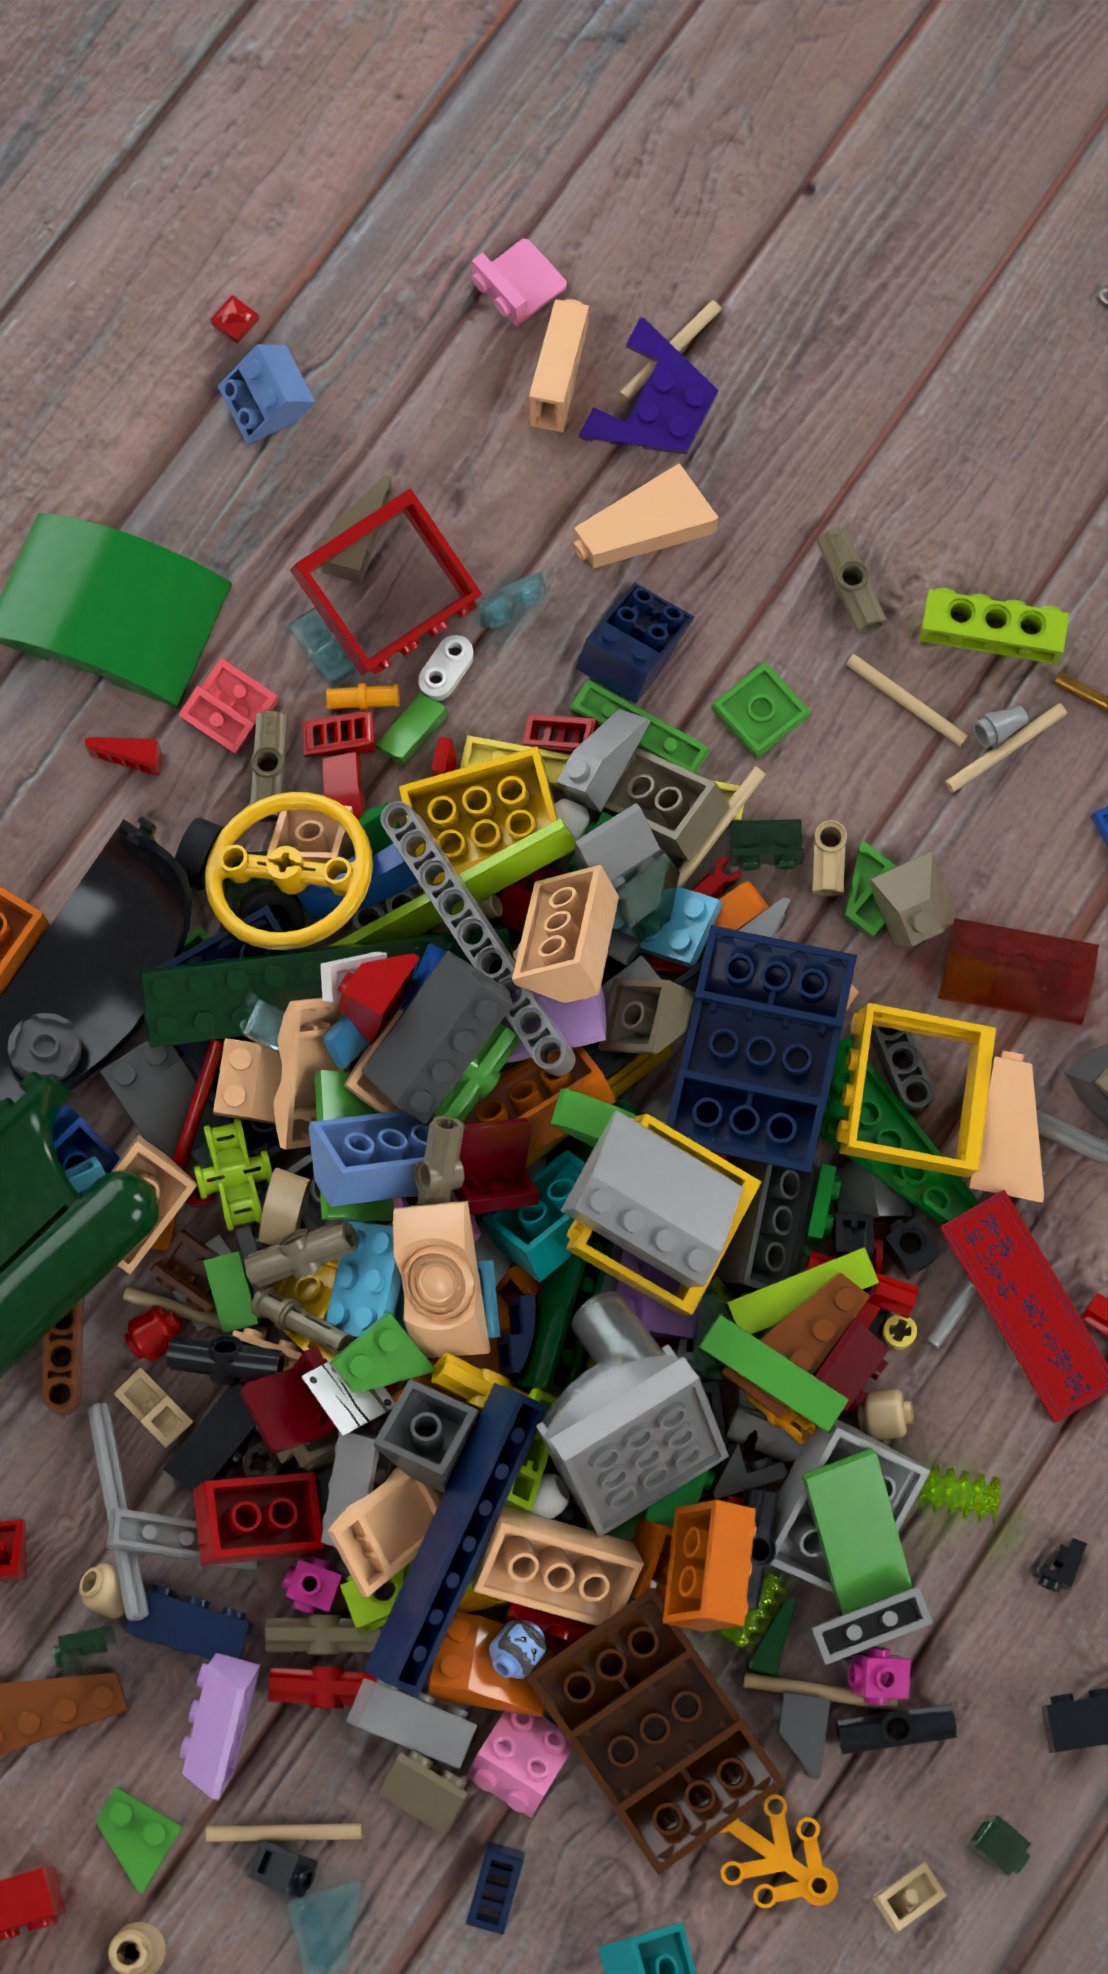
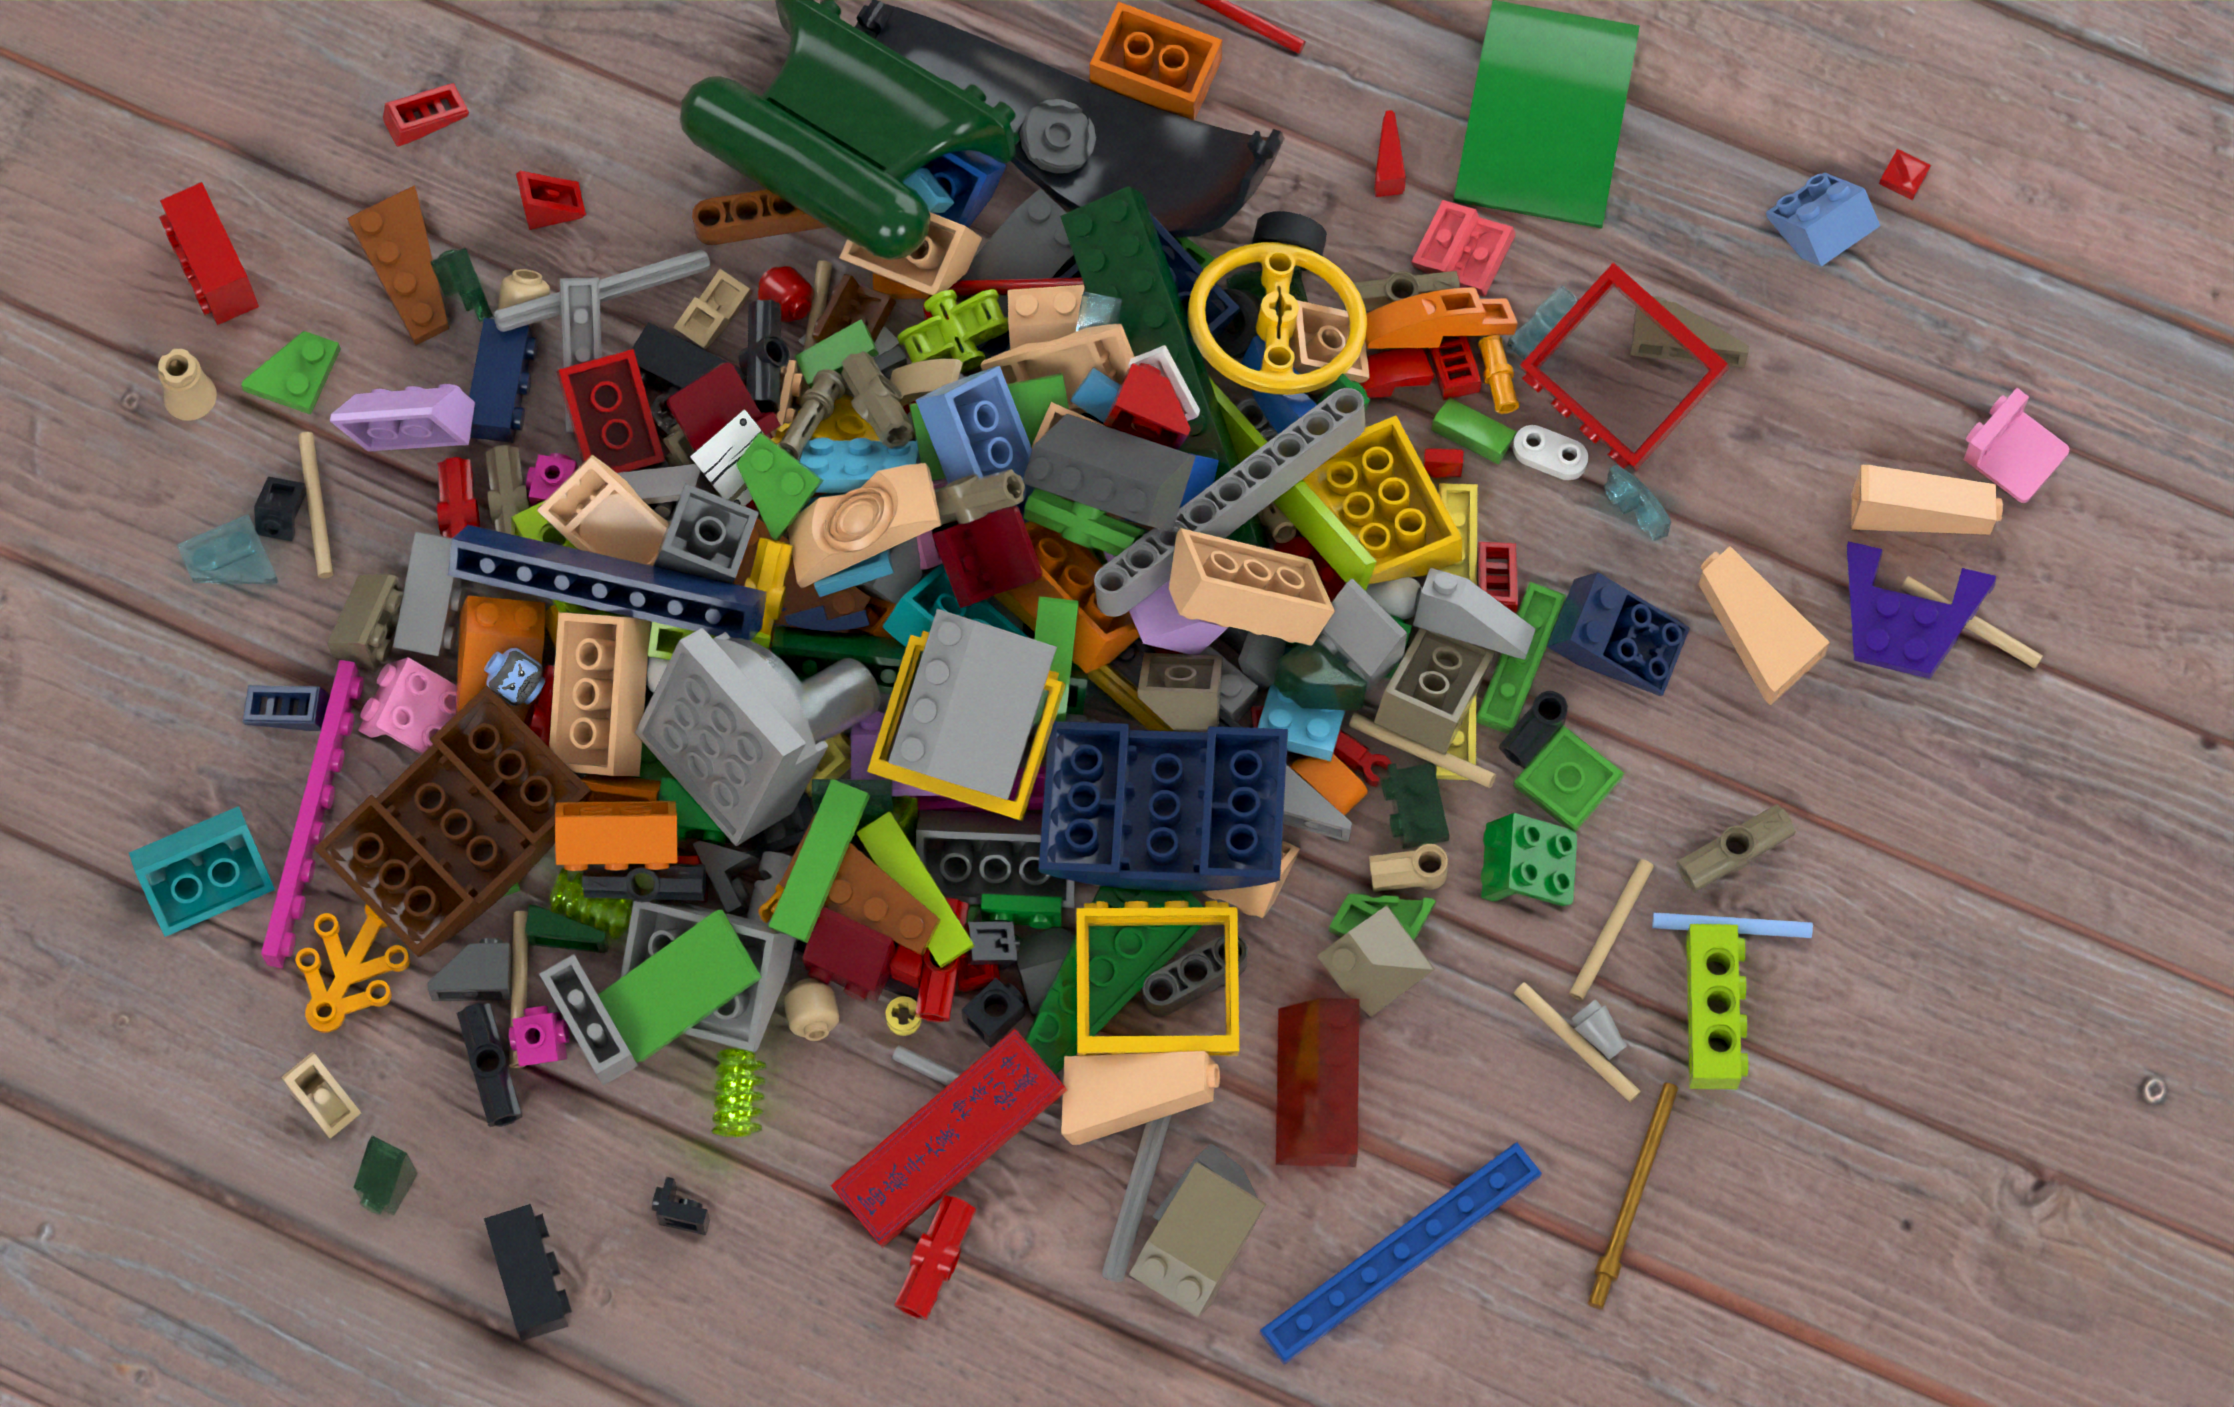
camera: 80 degrees right, 5 degrees down
(301, 733) = (1427, 317): none -> orange slope
(631, 1877) = (309, 825): none -> dark pink plate
(715, 729) = (1533, 730): none -> black piece
(836, 757) = (1528, 860): none -> green bracket
(917, 600) = (1745, 925): none -> light blue bar

